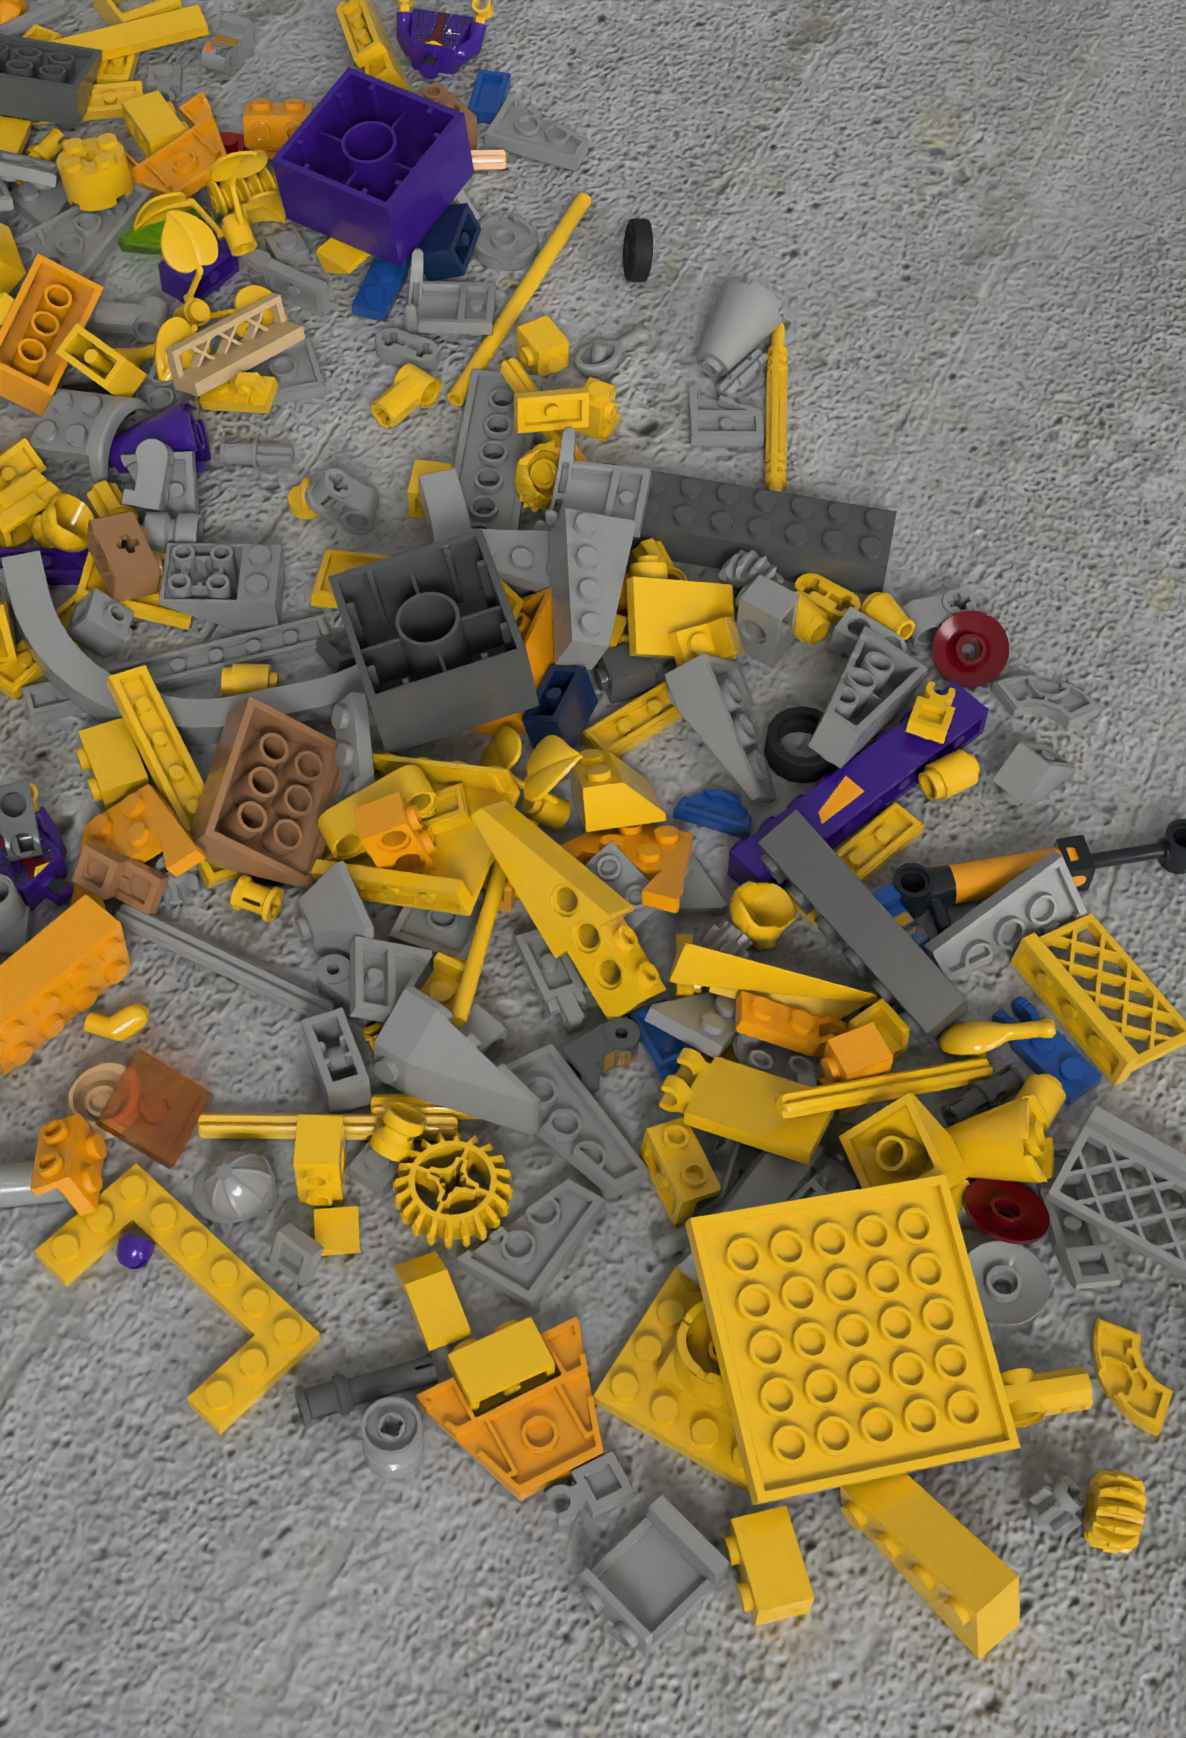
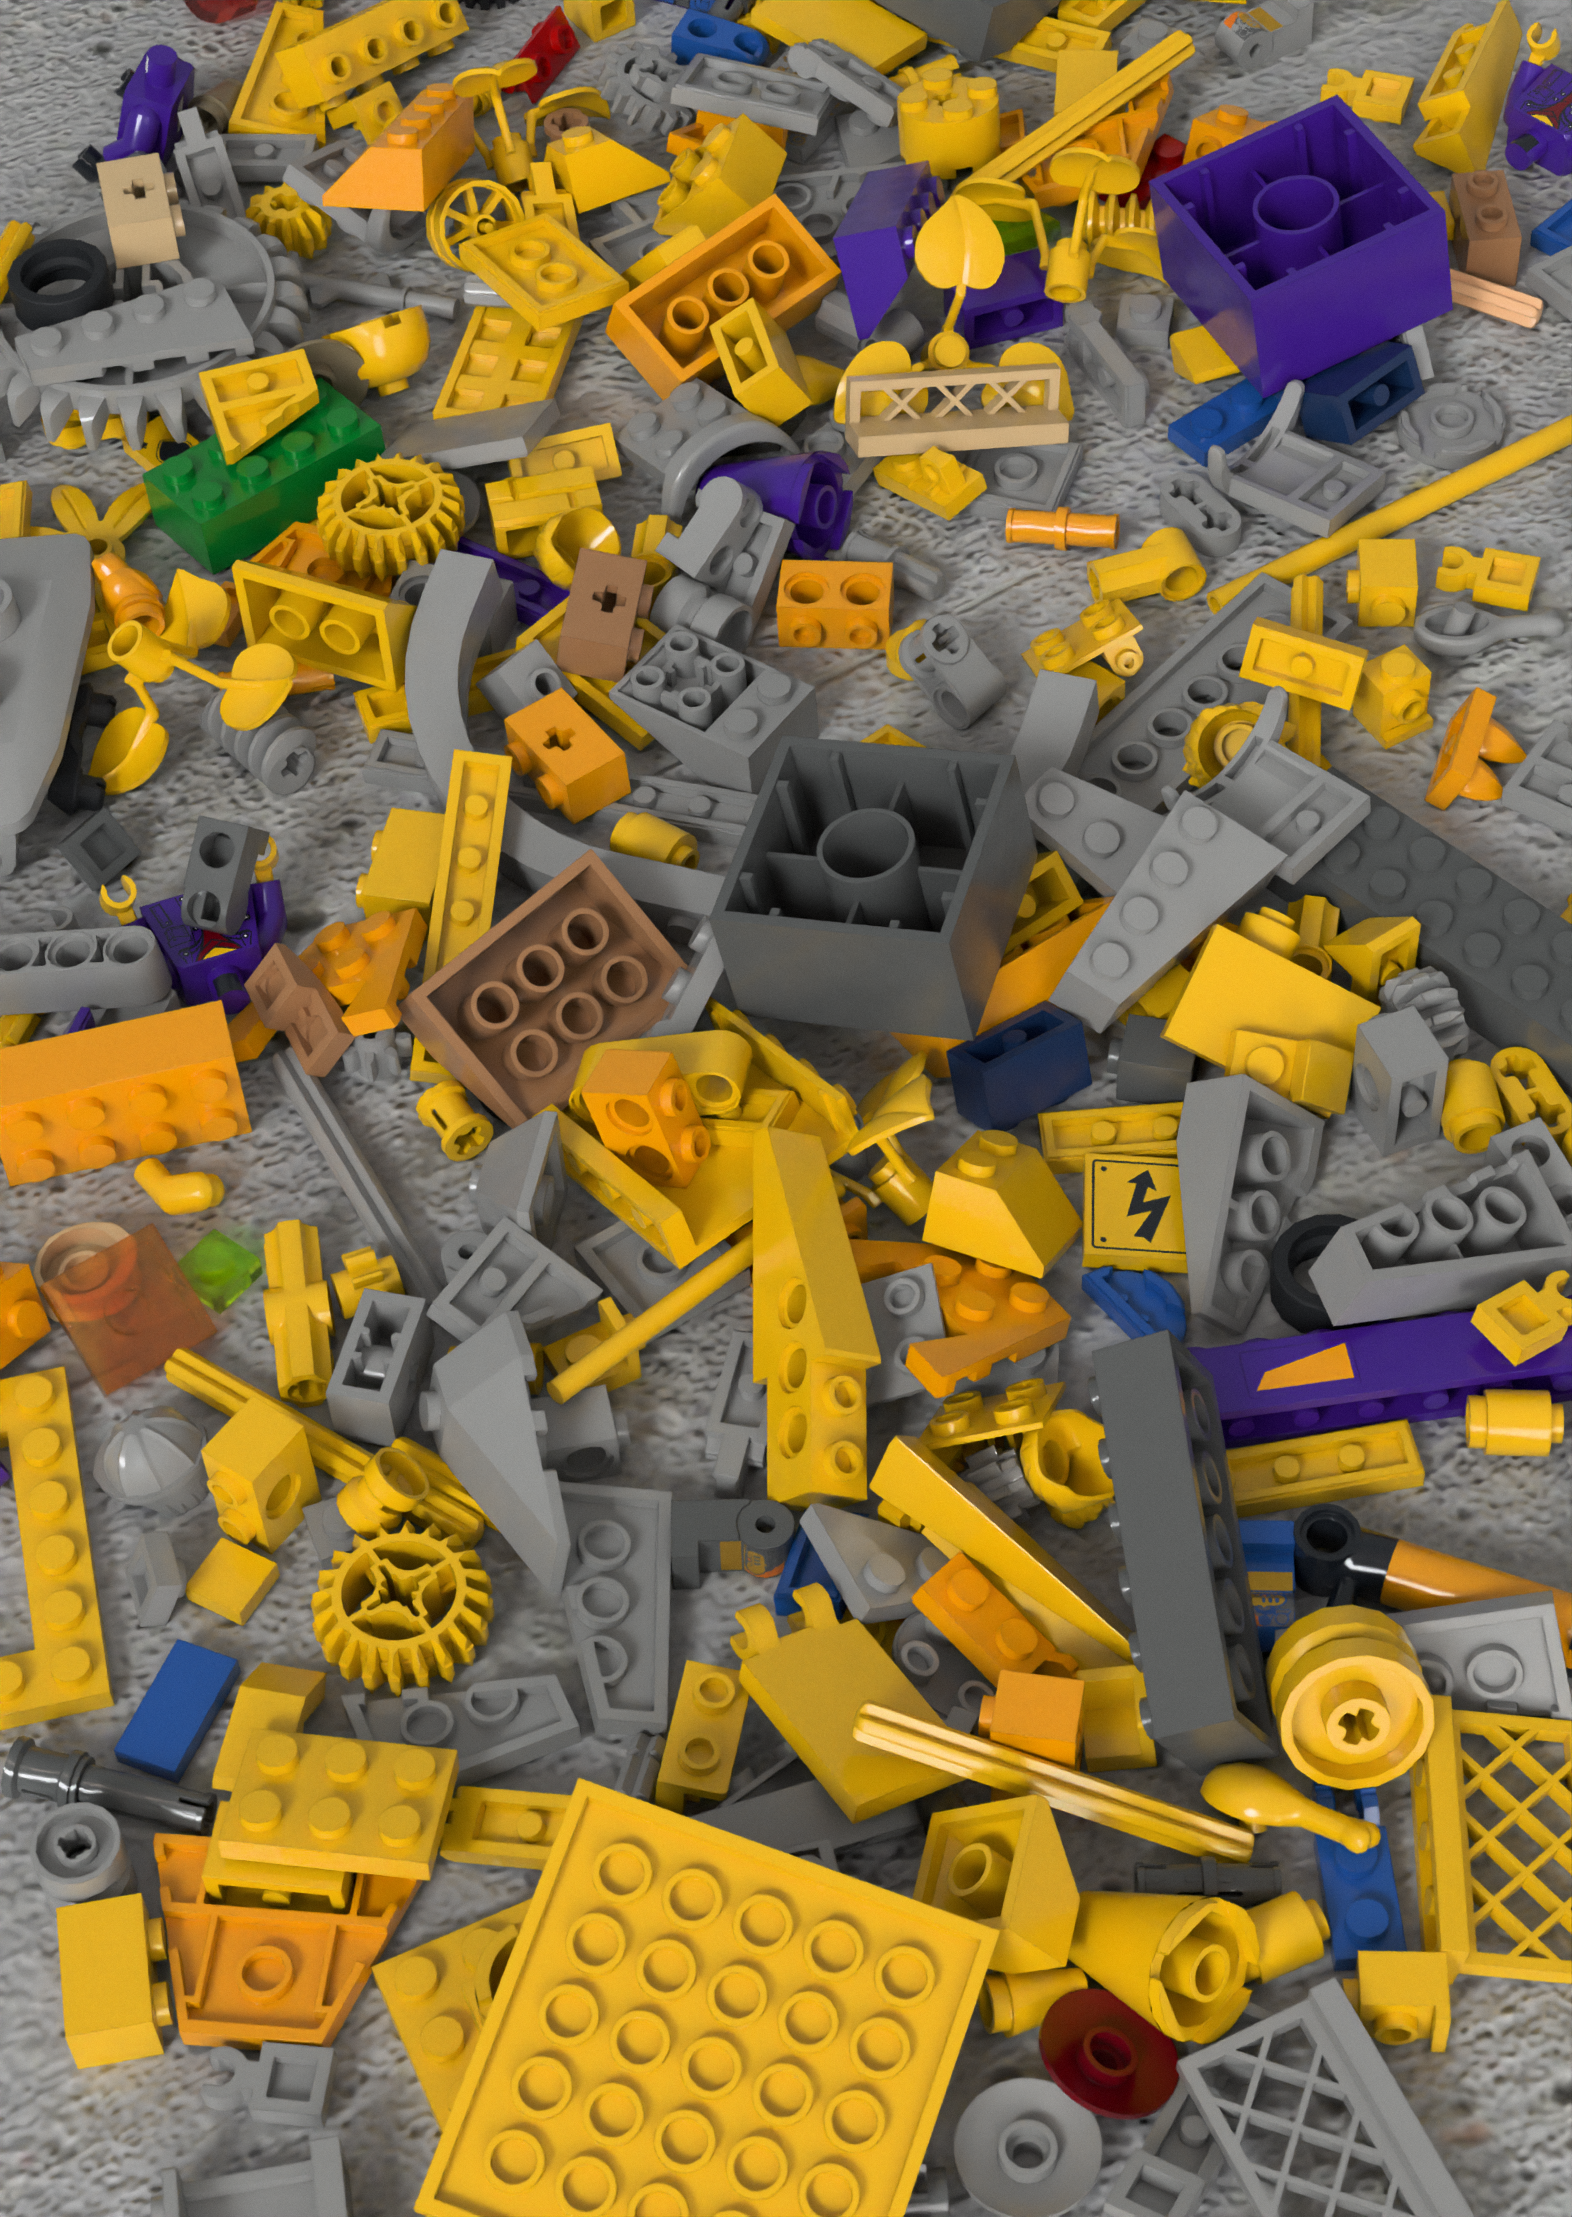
camera: 40 degrees right, 5 degrees down
(127, 255) = (880, 235): none -> dark purple slope
(167, 650) = (566, 756): none -> light orange brick
(169, 139) = (1089, 109): none -> yellow axle
(183, 1055) = (219, 1270): none -> clear neon green plate
(242, 491) = (835, 604): none -> light orange brick
(255, 1056) = (299, 1313): none -> yellow piece
(284, 1018) = (362, 1272): none -> yellow gear
(320, 62) = (1374, 96): none -> yellow plate
(338, 390) = (1062, 528): none -> light orange pin
(365, 1321) = (177, 1711): none -> blue tile
(409, 450) = (1103, 629): none -> yellow hinge
(457, 1490) = (111, 1980): none -> yellow brick
(519, 1316) = (339, 1804): none -> yellow plate
(597, 318) = (1496, 578): none -> yellow plate
(613, 1274) = (502, 1827): none -> yellow hinge
(654, 424) = (1468, 738): none -> light orange tile
(661, 1214) = (641, 1767): none -> light grey axle
(676, 760) = (1132, 1213): none -> yellow tile
(701, 908) = (985, 1421): none -> yellow hinge
(703, 554) = (1376, 952): none -> yellow slope
(994, 958) = (1349, 1697): none -> yellow wheel
(1121, 1094) = (1402, 1996): none -> yellow brick

